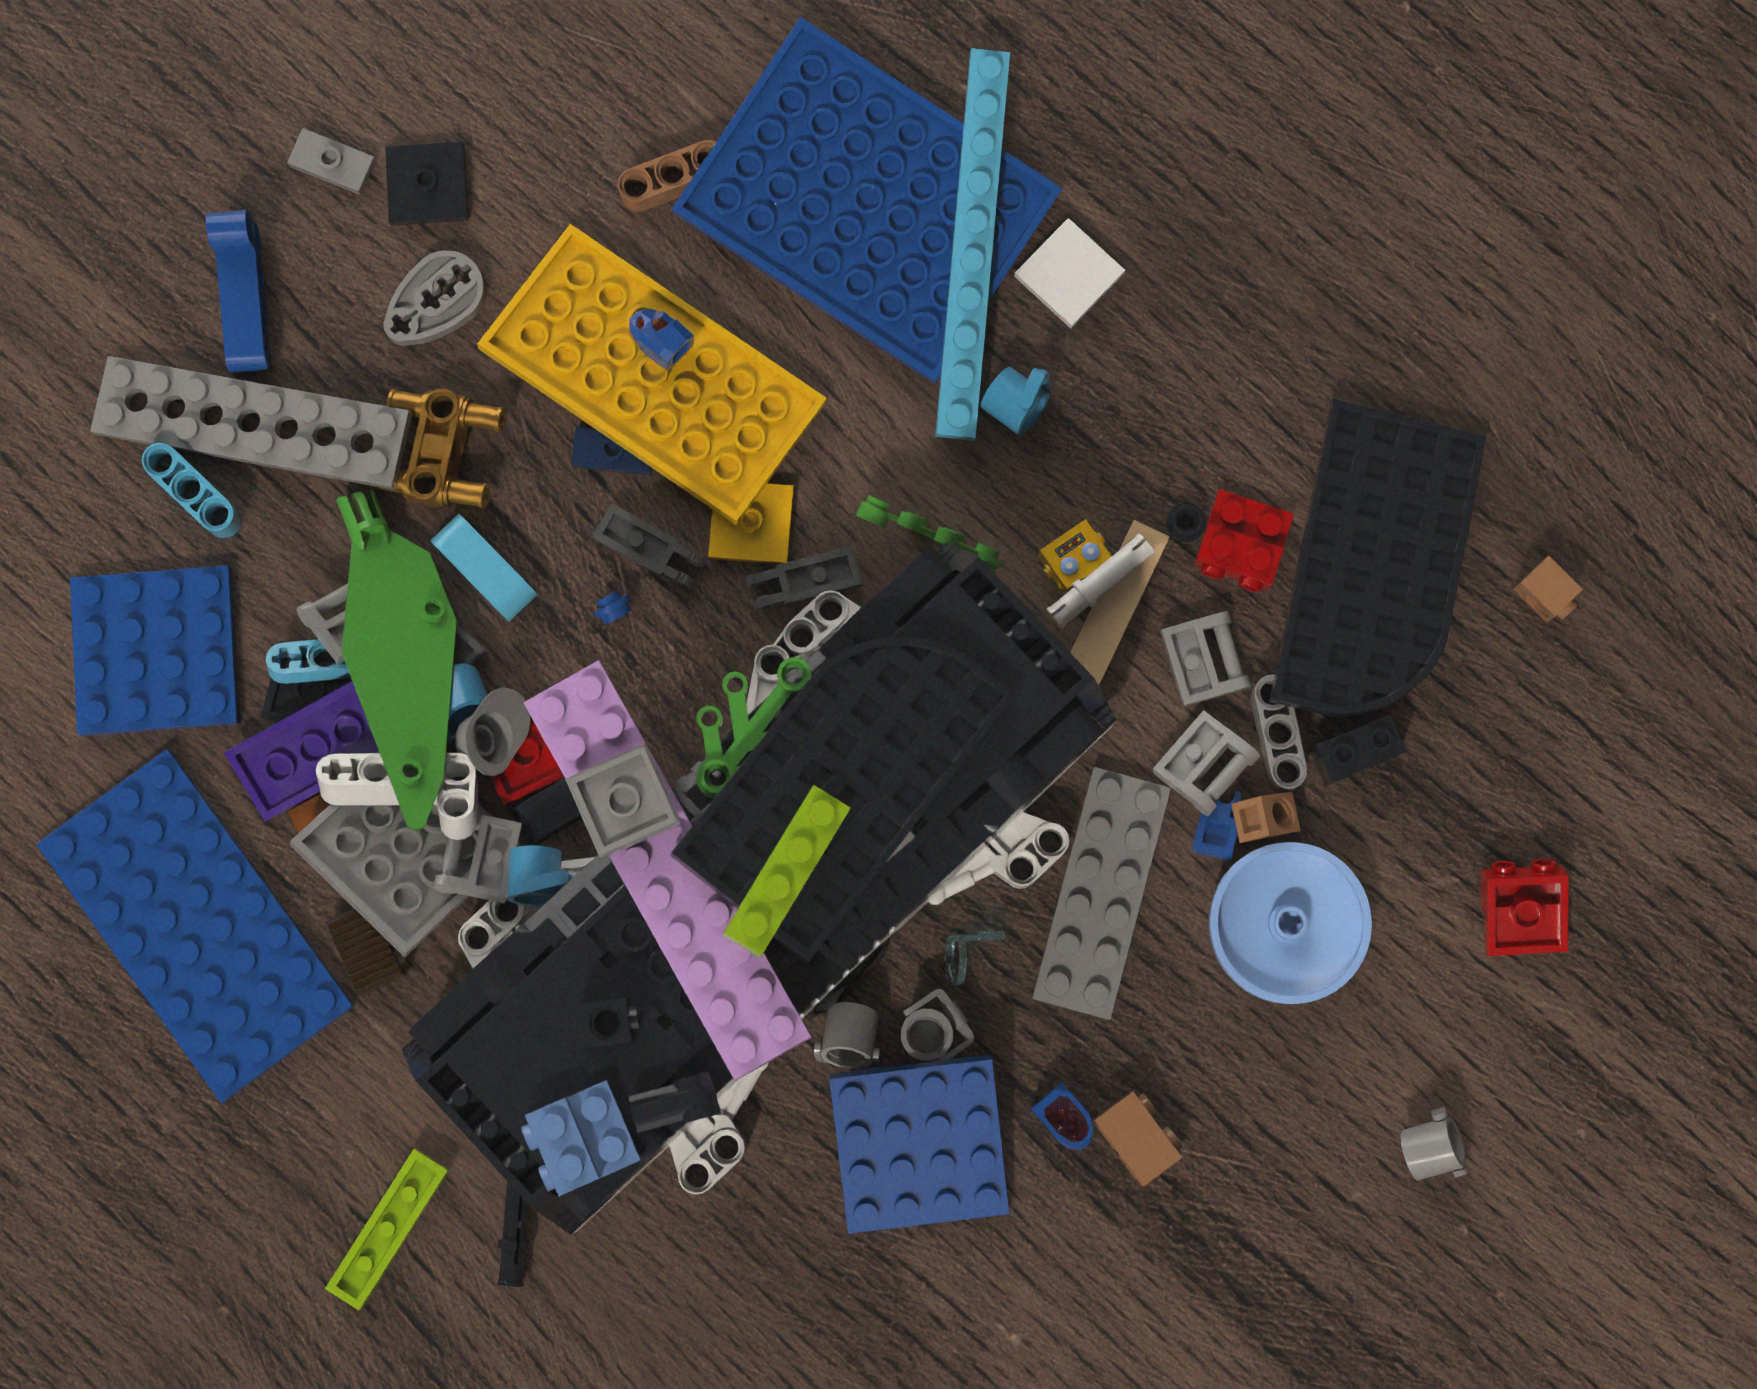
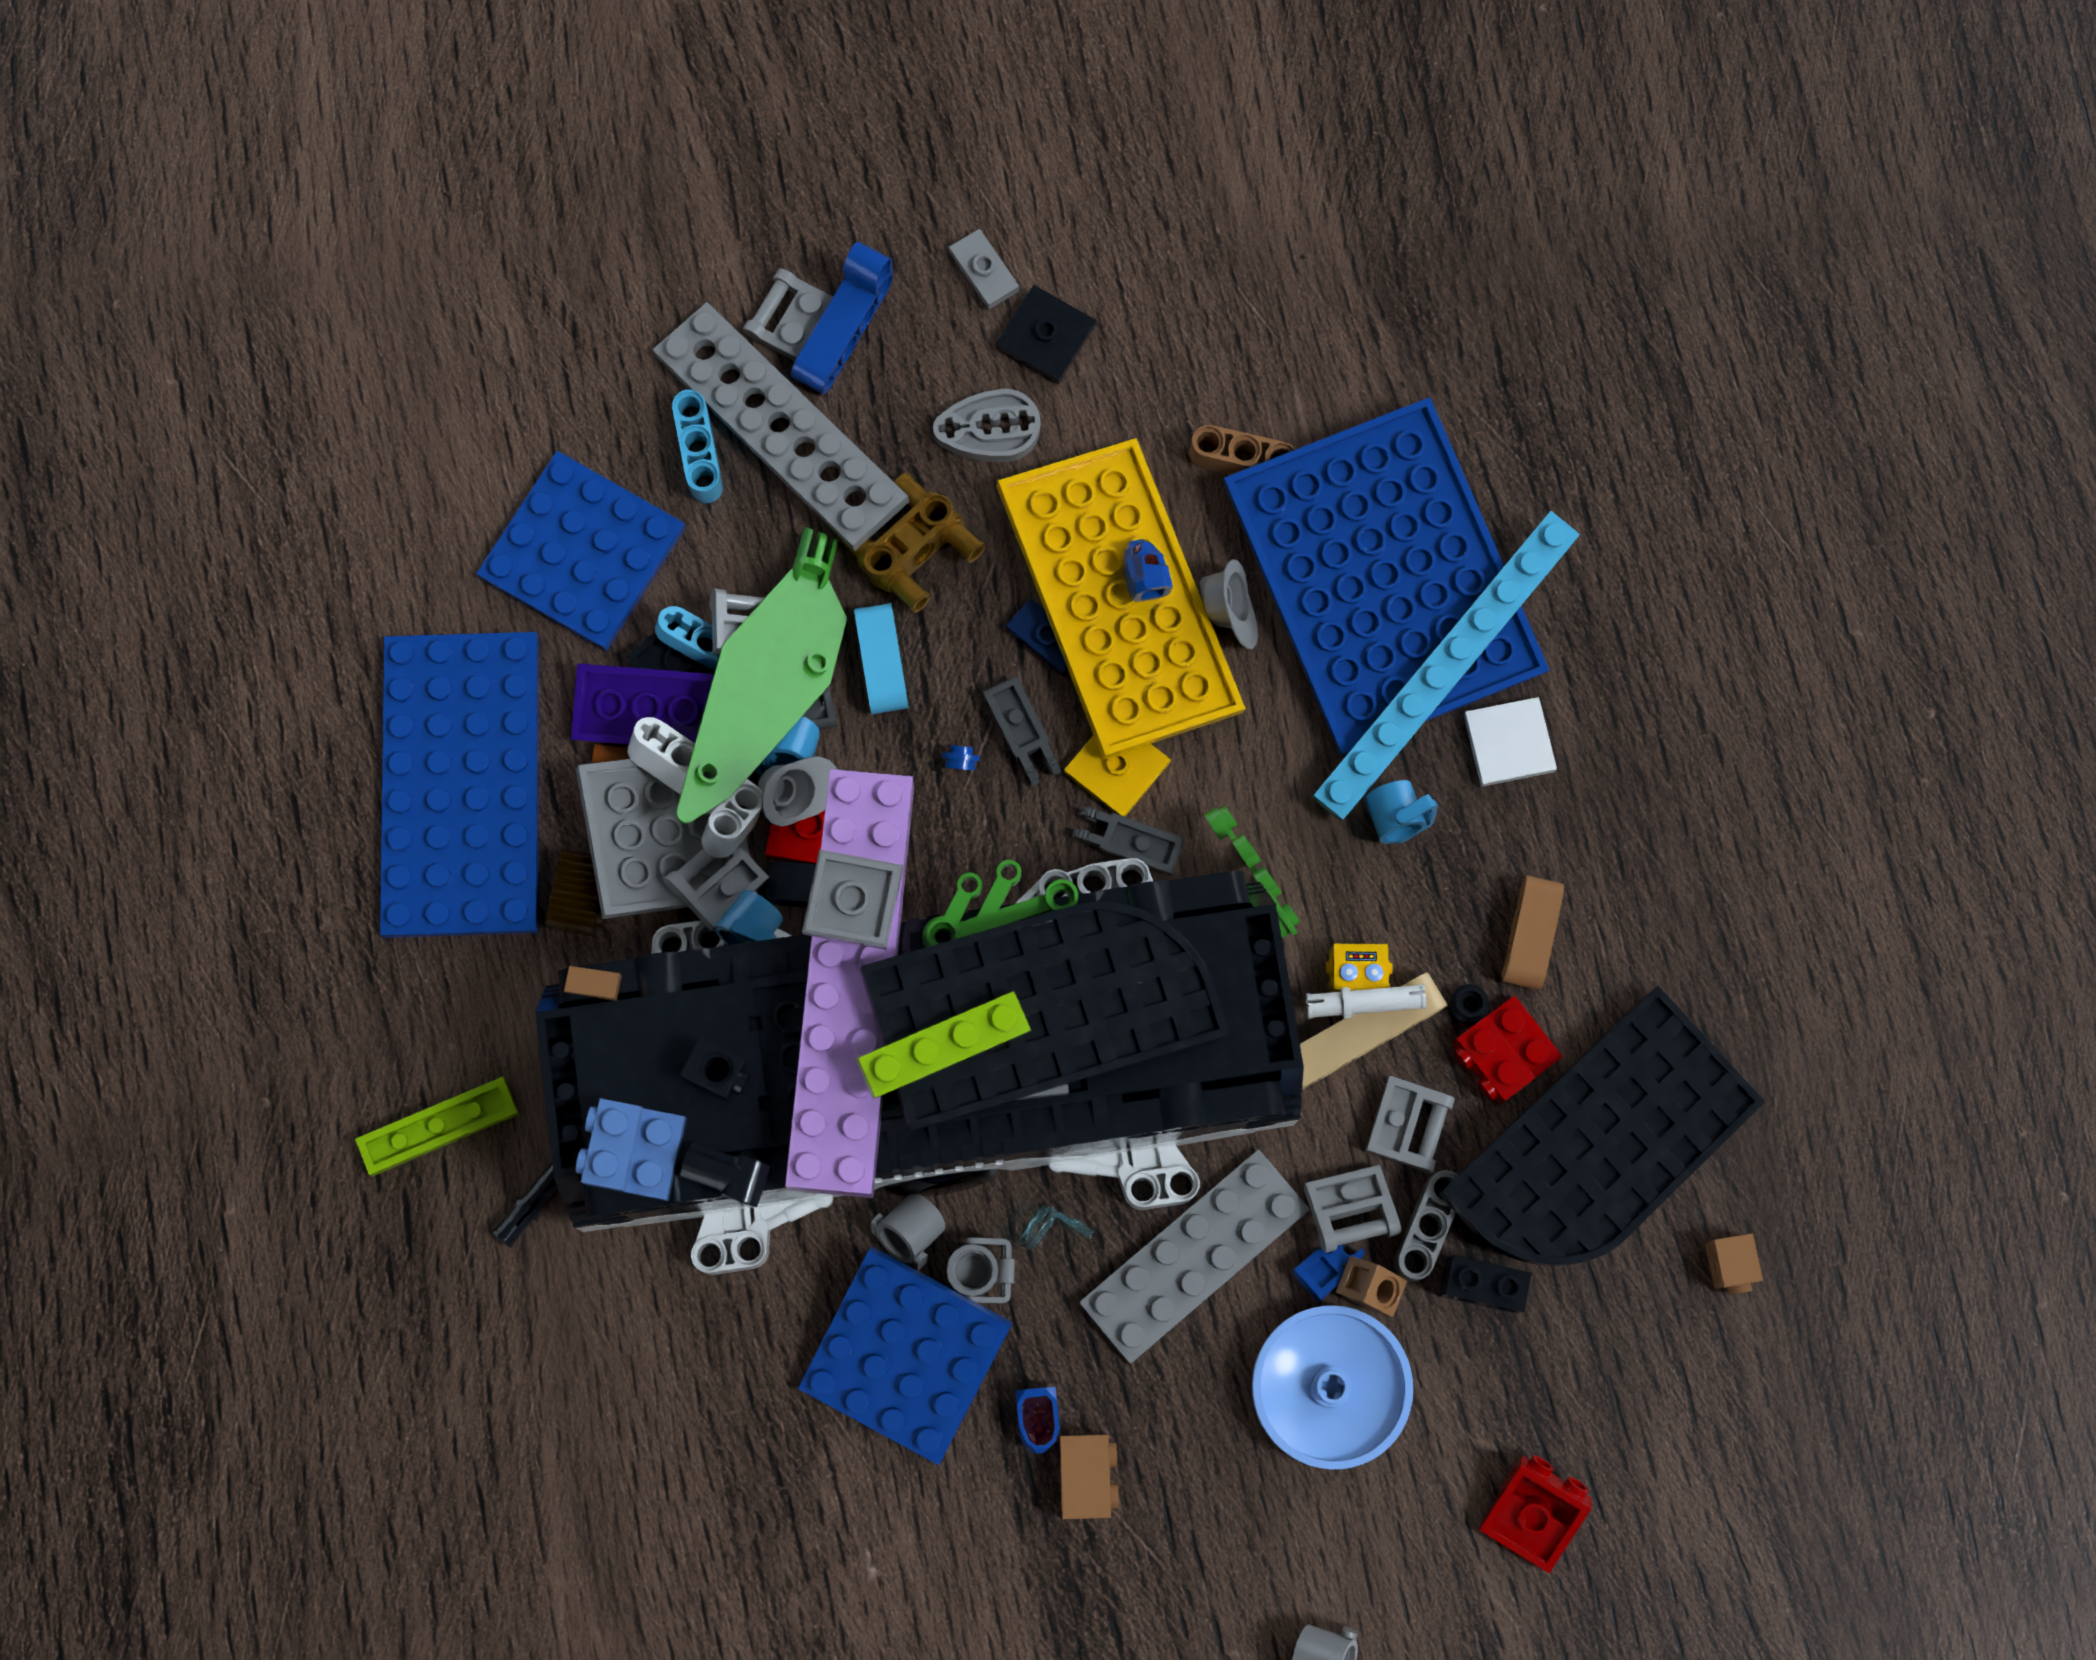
camera: 30 degrees right, 5 degrees down
(201, 319) = (796, 322): none -> light grey plate
(447, 1022) = (593, 983): none -> medium nougat piece
(750, 315) = (1229, 603): none -> light grey piece
(1199, 425) = (1532, 932): none -> medium nougat beam

